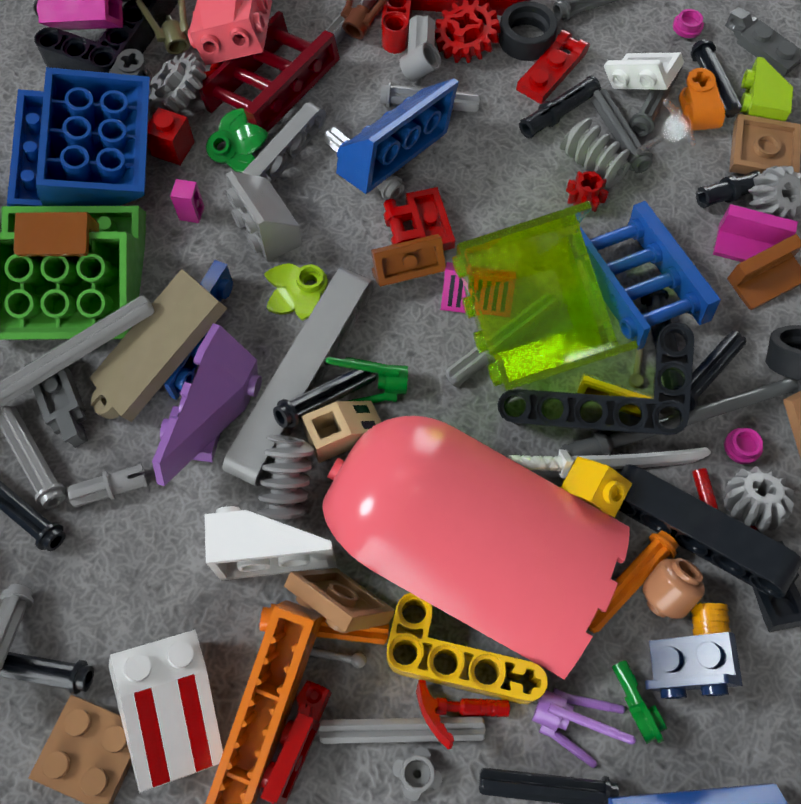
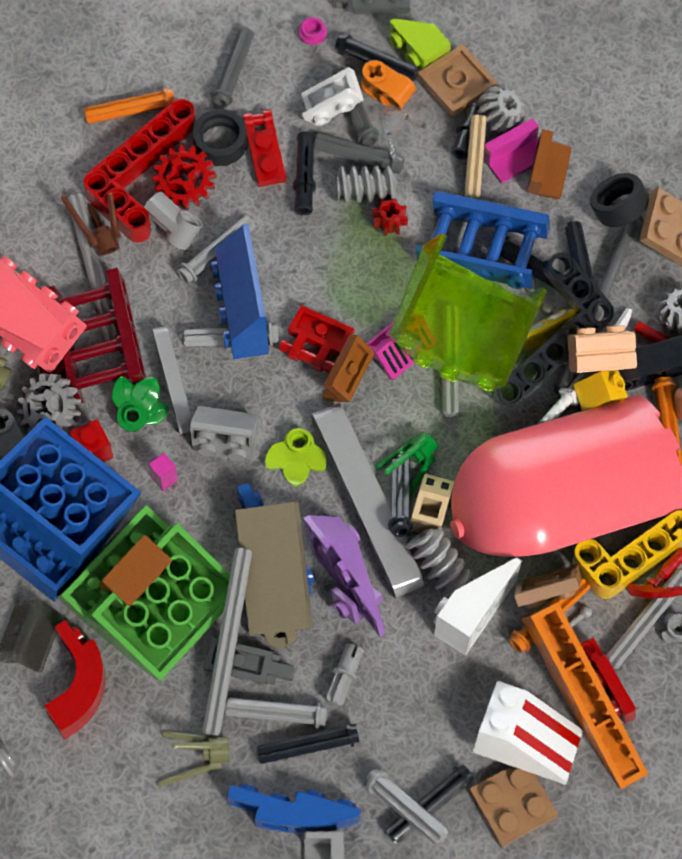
camera: 50 degrees left, 0 degrees up
(633, 451) = (603, 350): none -> light nougat brick
(713, 208) = (475, 156): none -> tan axle
(743, 445) = (643, 287): dark pink plate -> none

